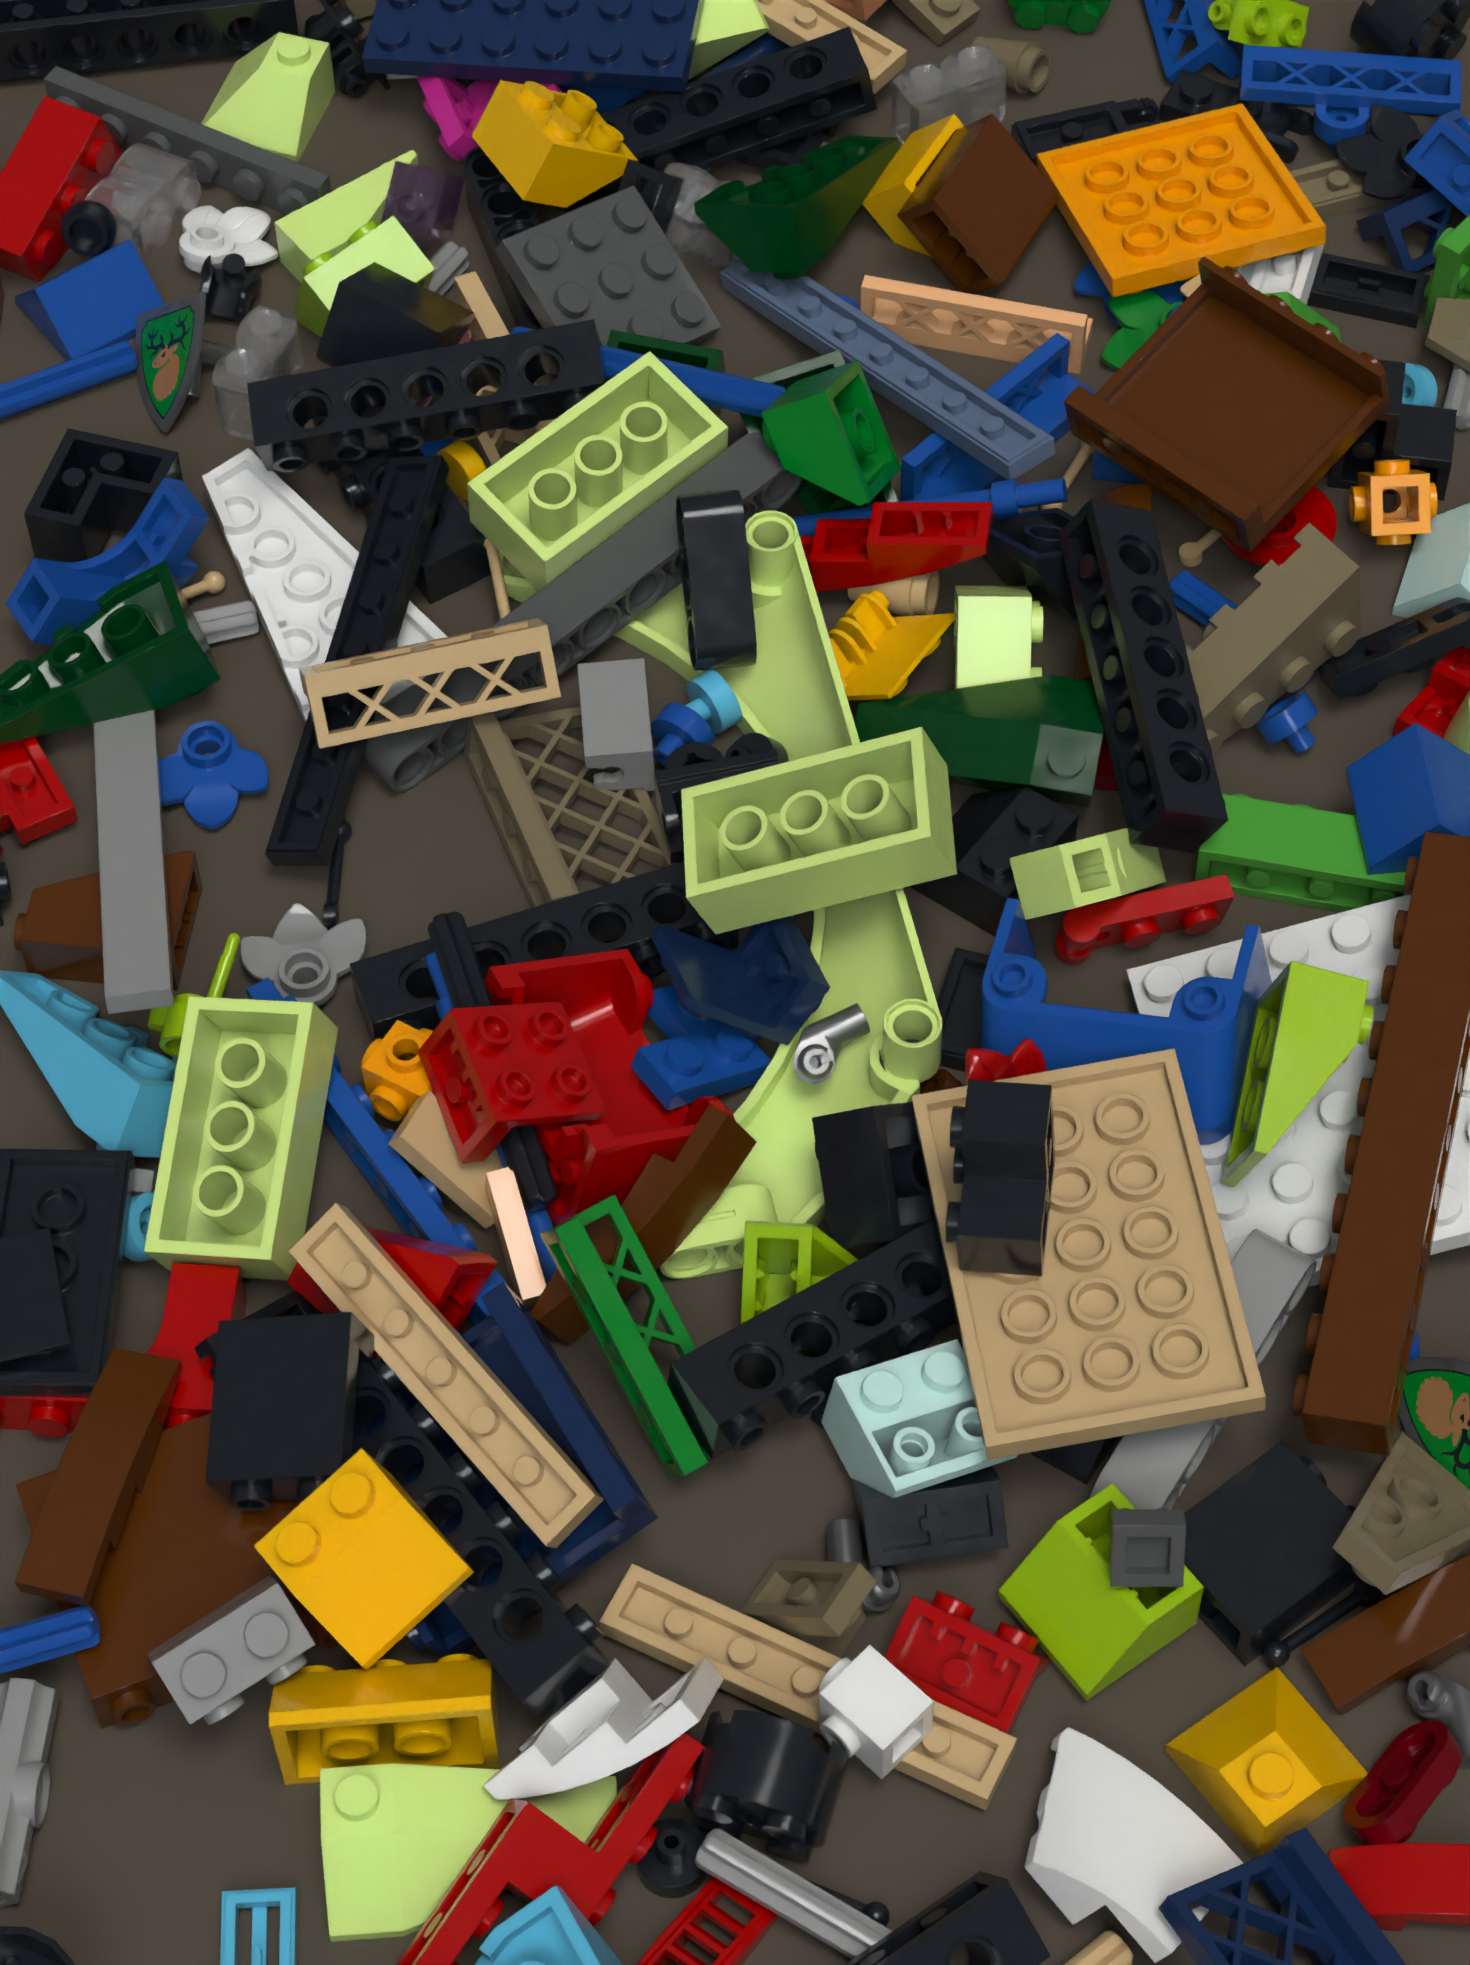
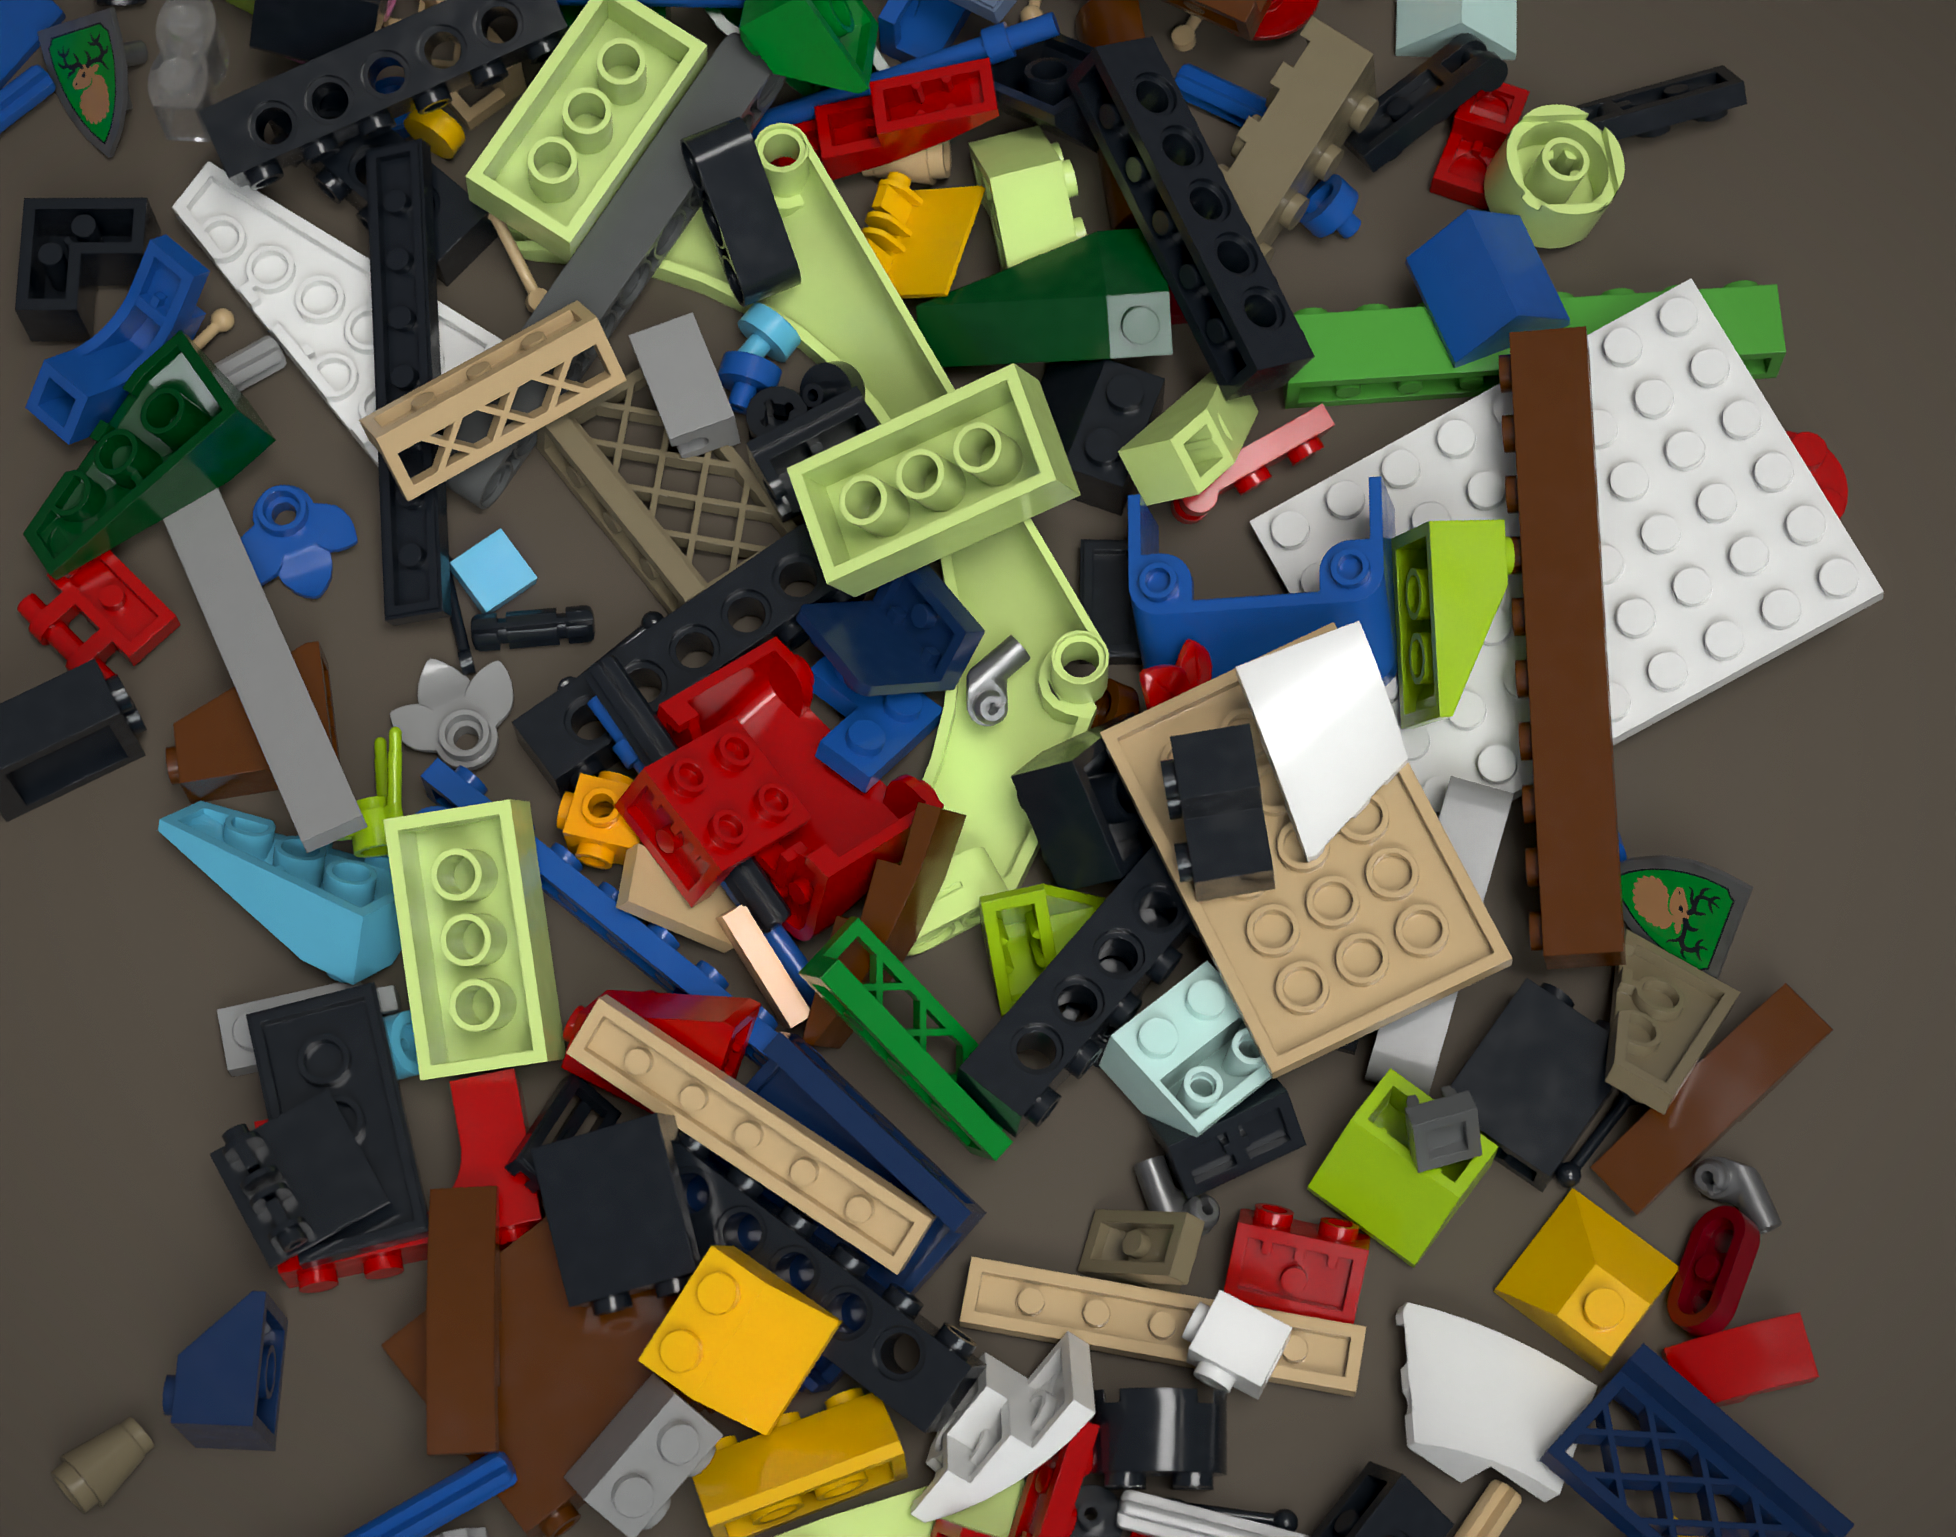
camera: 15 degrees left, 15 degrees up
(382, 843) = (493, 572): none -> medium azure tile
(399, 898) = (532, 628): none -> black axle
(1133, 1132) = (1324, 729): none -> white slope

